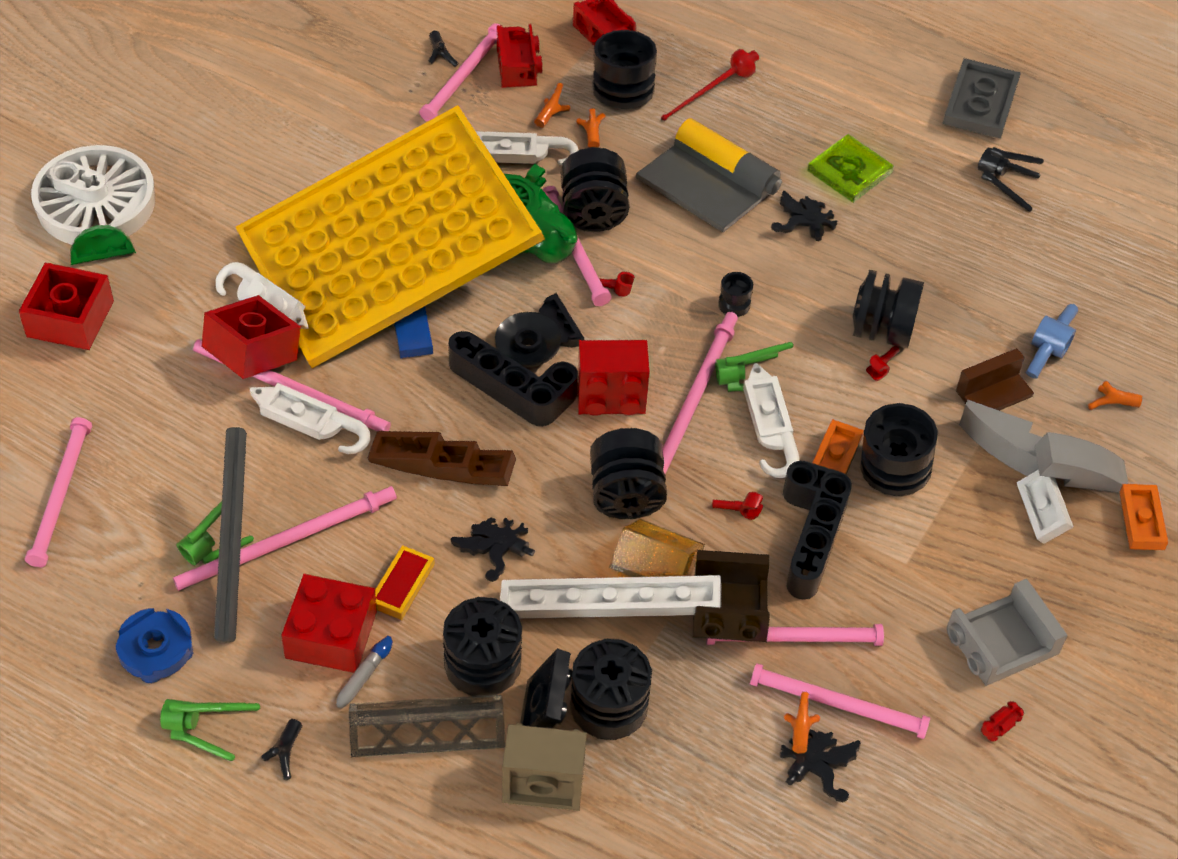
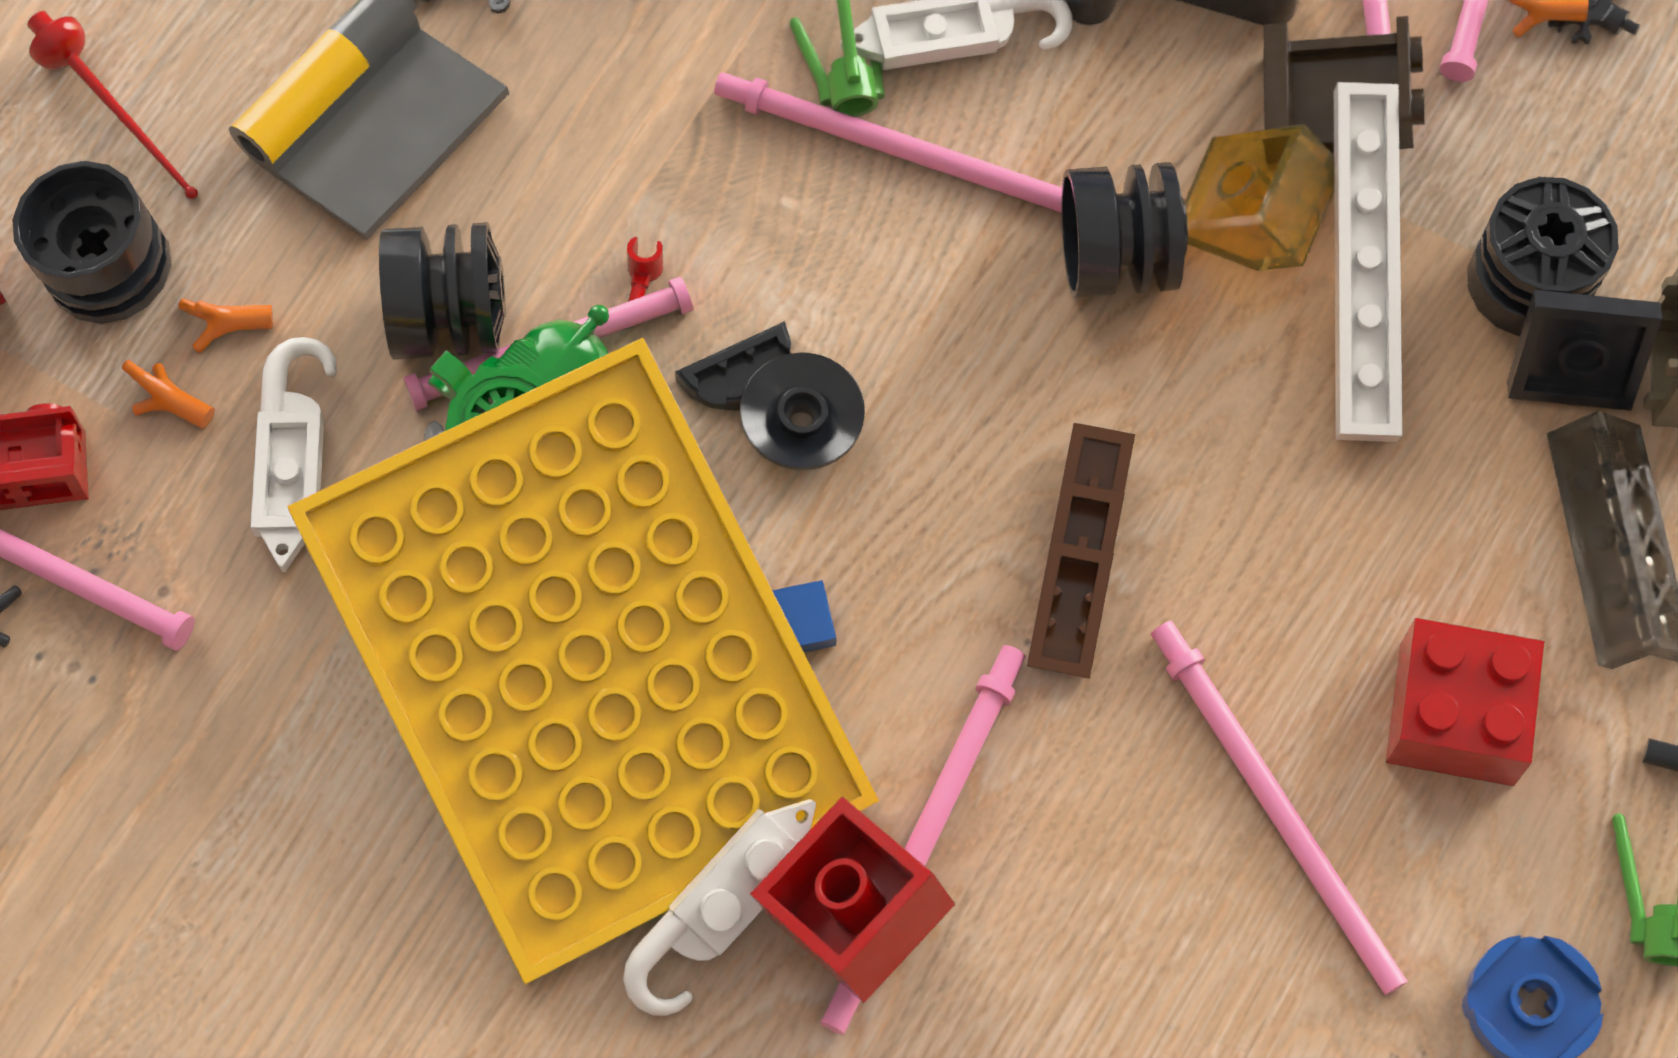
camera: 90 degrees left, 15 degrees up
(199, 543) = (1320, 949): bright green plant -> none
(230, 535) = (1330, 871): dark grey axle -> none
(308, 415) = (1004, 789): white plate -> none
(364, 671) = (1554, 660): light grey piece -> none
(403, 581) = (1347, 601): tile -> none
(482, 646) = (1491, 448): black wheel -> none
(496, 541) = (1243, 447): black piece -> none
(531, 397) = (886, 445): black beam -> none
(612, 377) = (912, 255): red brick -> none
(736, 293) = (675, 69): black wheel -> none
(749, 508) = (1132, 64): red hand -> none

